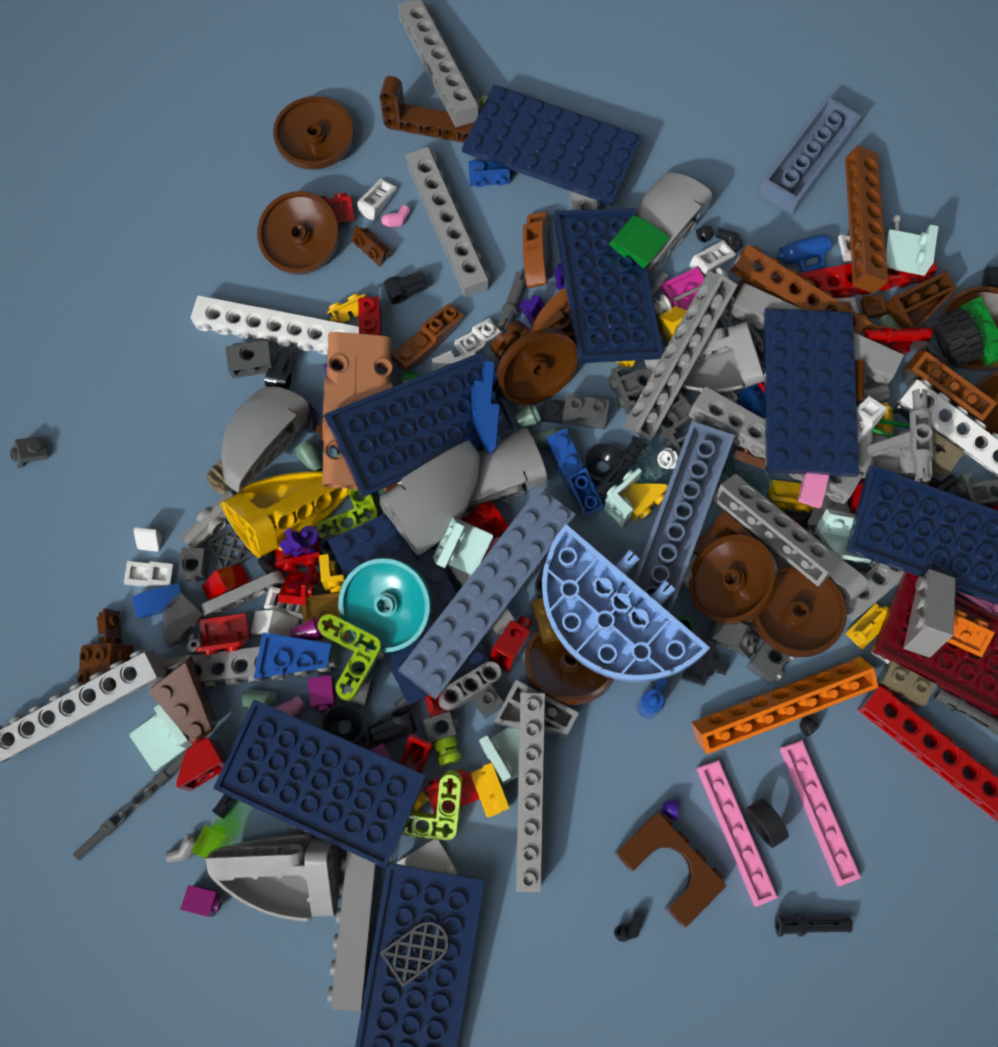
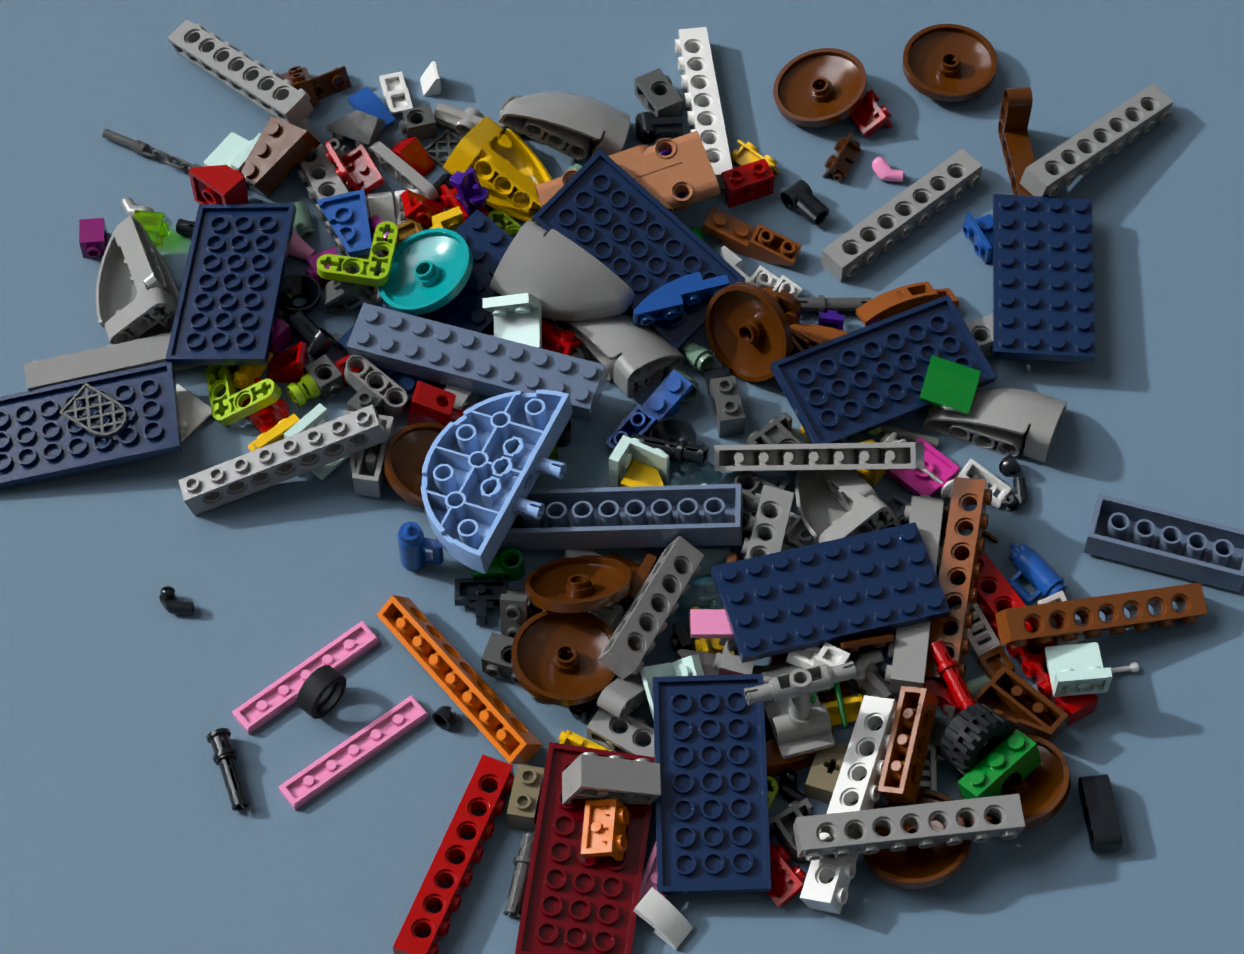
camera: 70 degrees right, 15 degrees down
(372, 210) = (888, 146): white slope -> none
(671, 808) = (309, 607): dark purple hinge -> none
(703, 882) = (243, 652): reddish brown arch -> none

